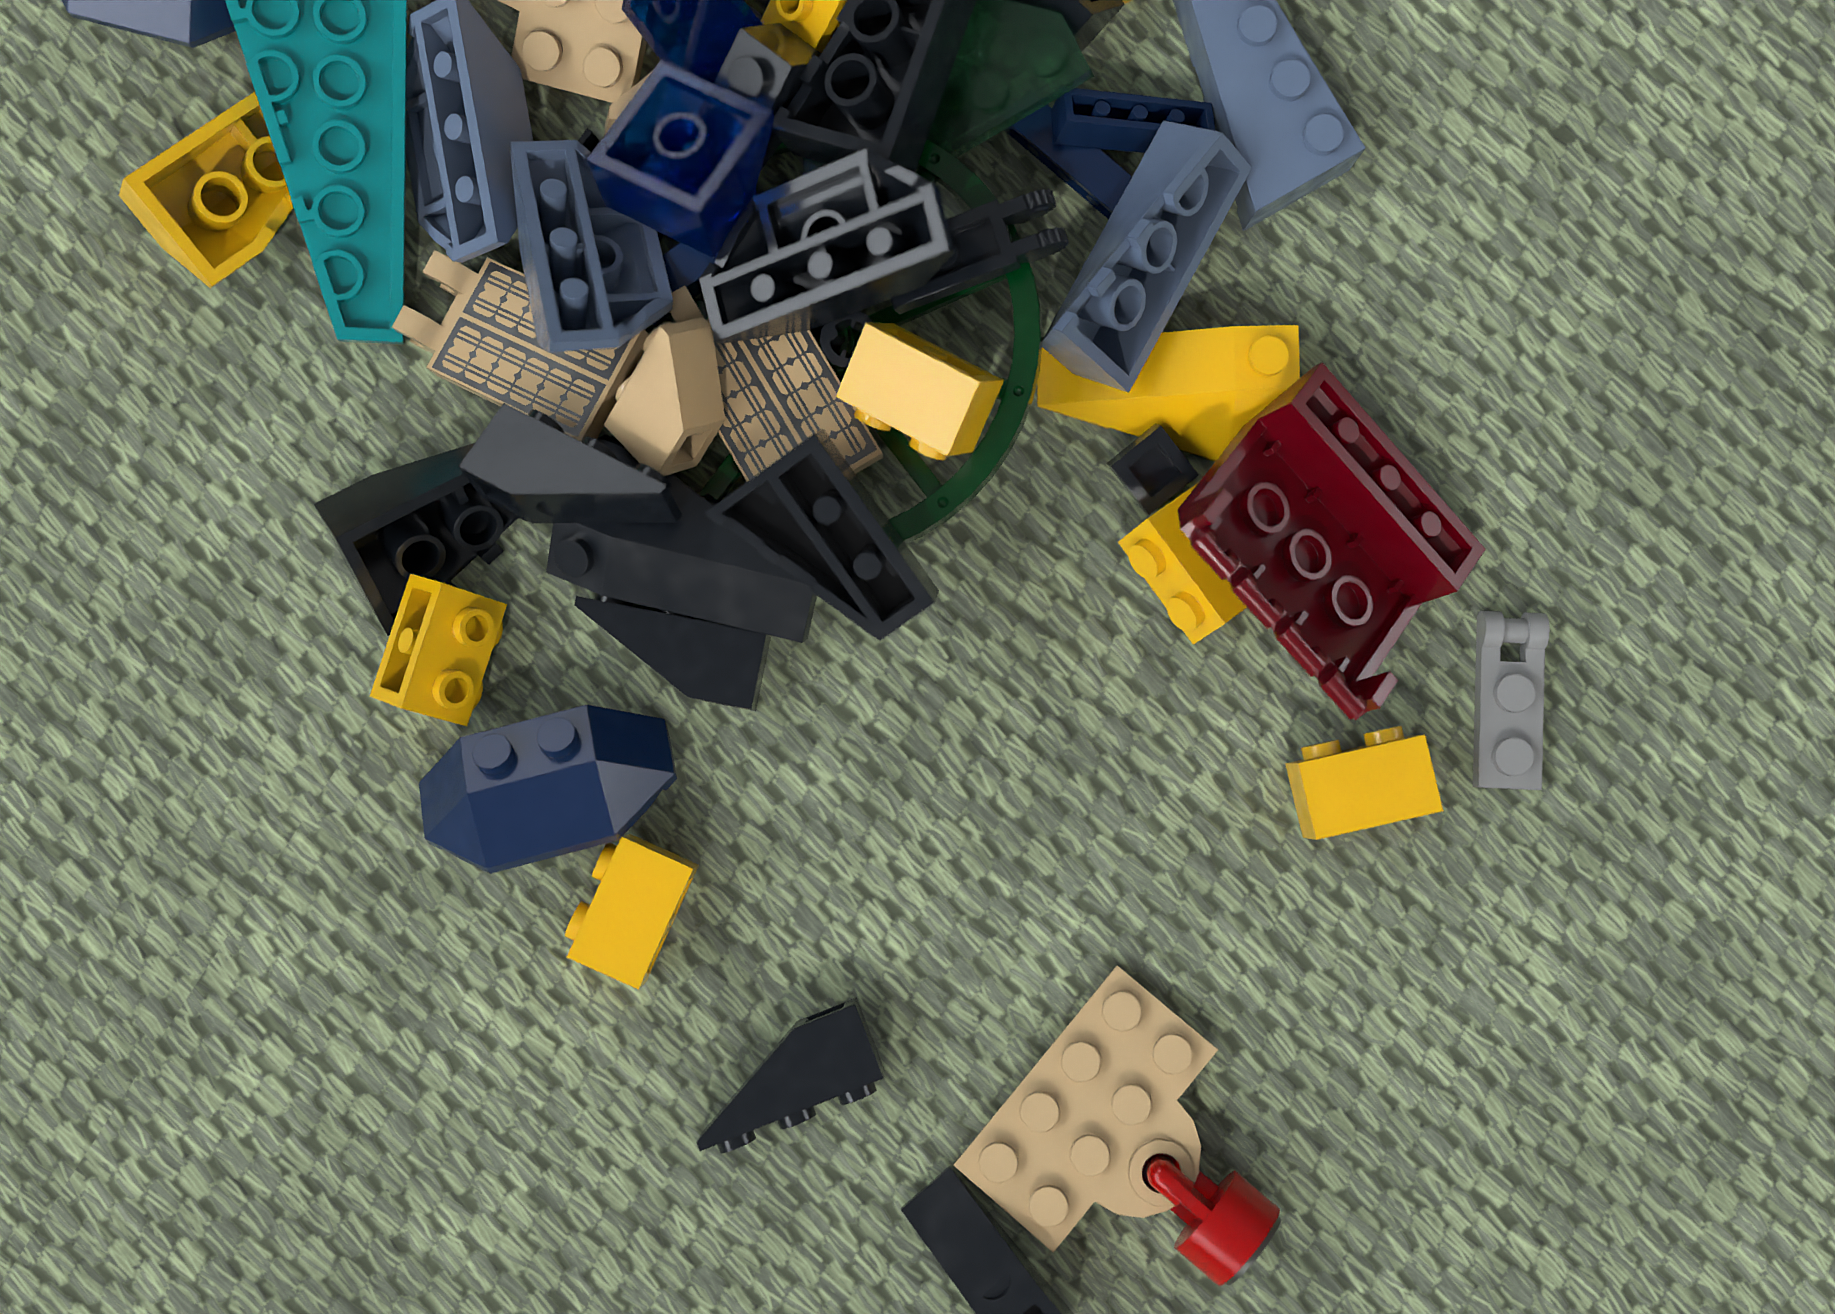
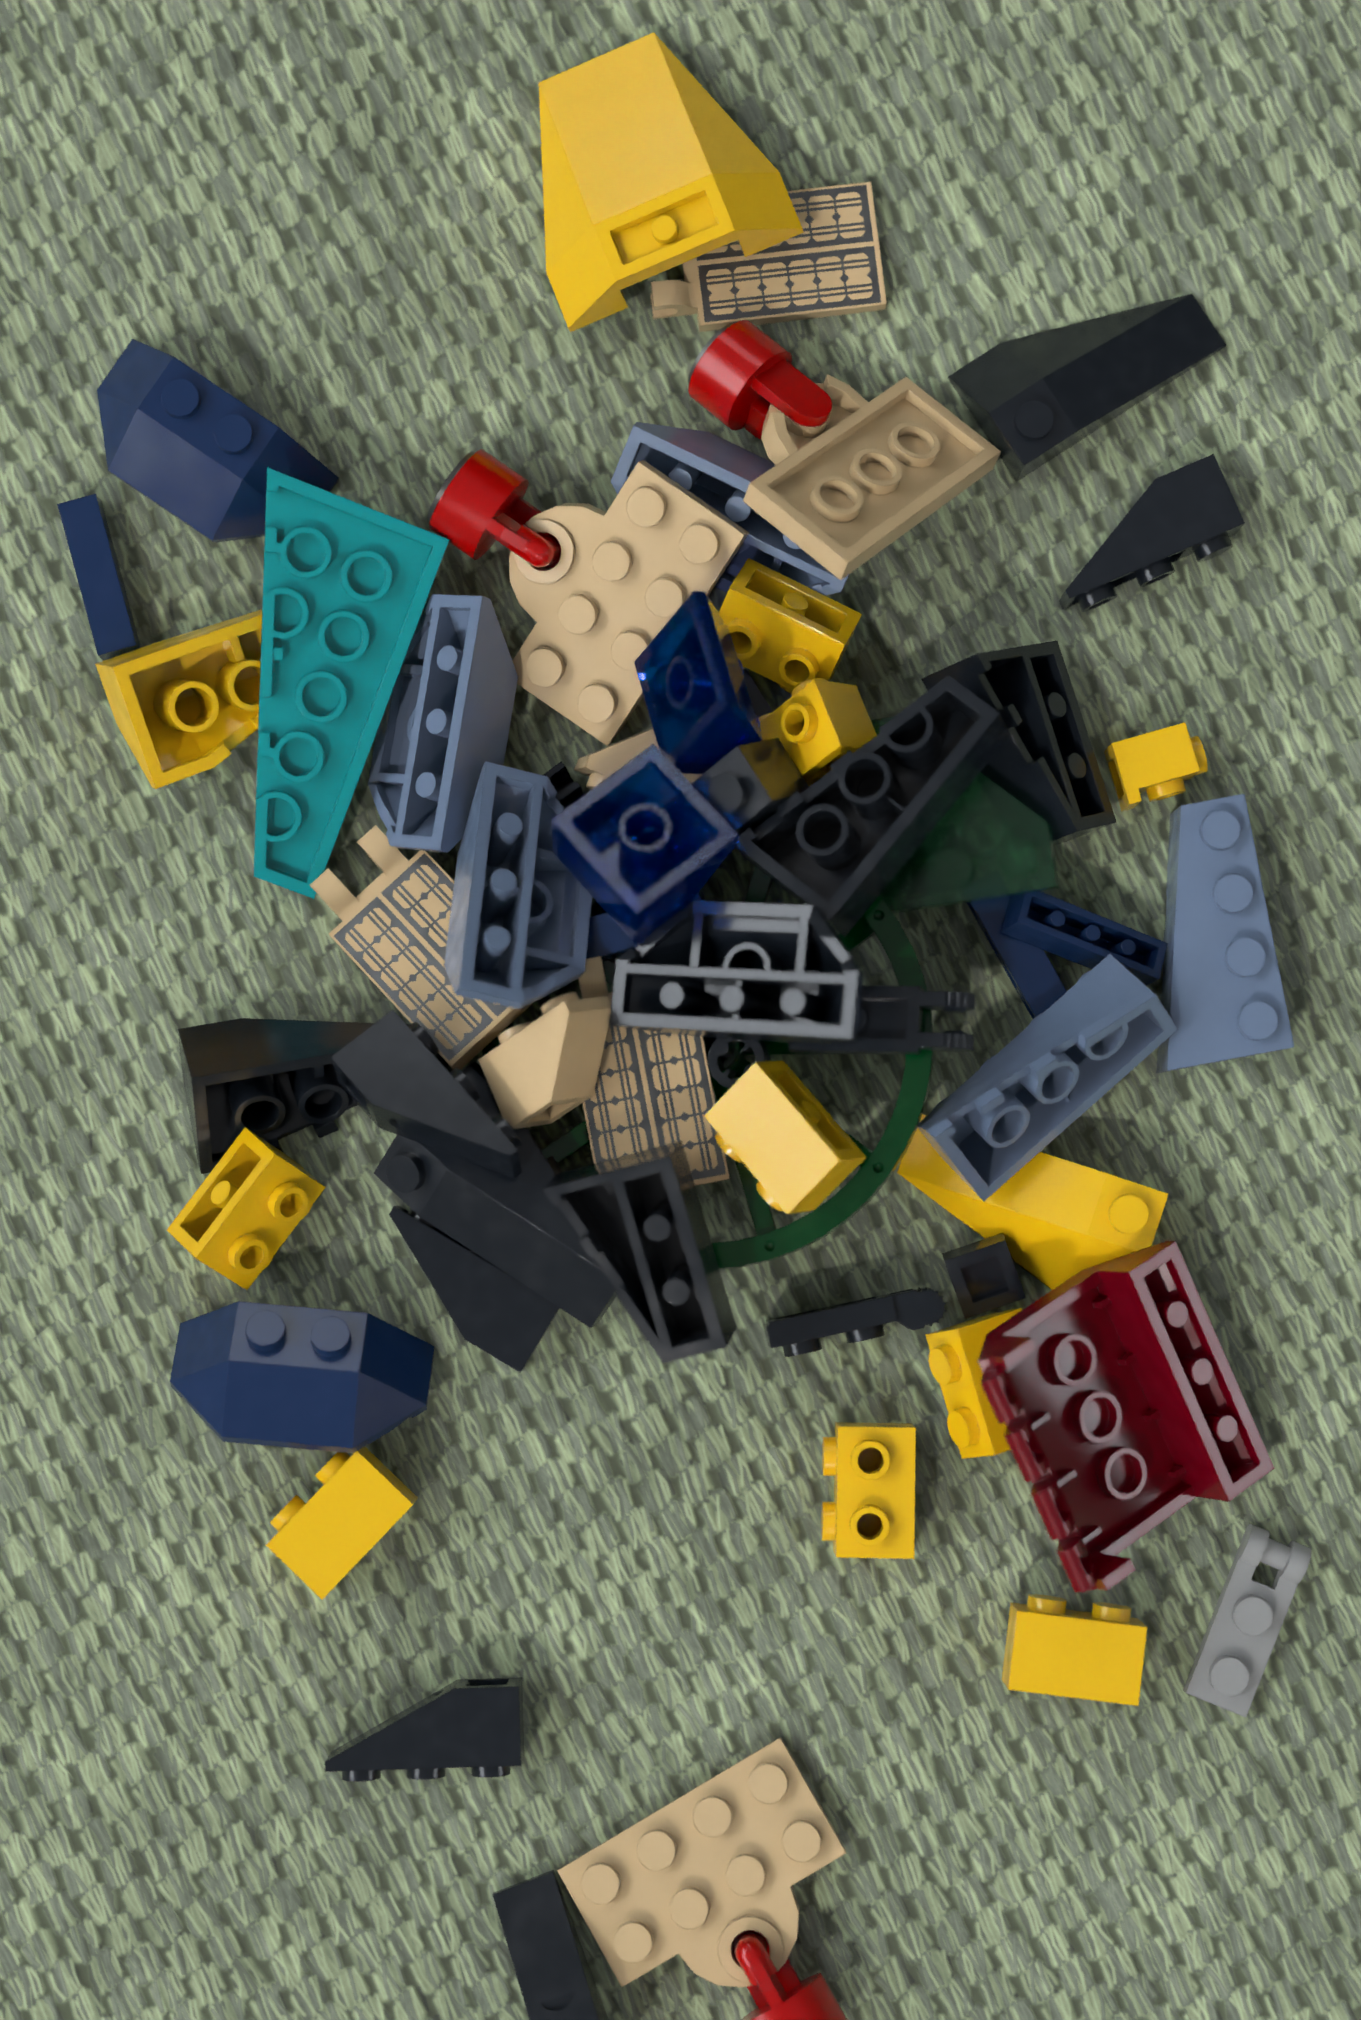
camera: 25 degrees right, 0 degrees up
(91, 110) = (99, 576): none -> dark blue piece
(1049, 550) = (858, 1319): none -> black hinge
(1120, 703) = (871, 1490): none -> yellow brick

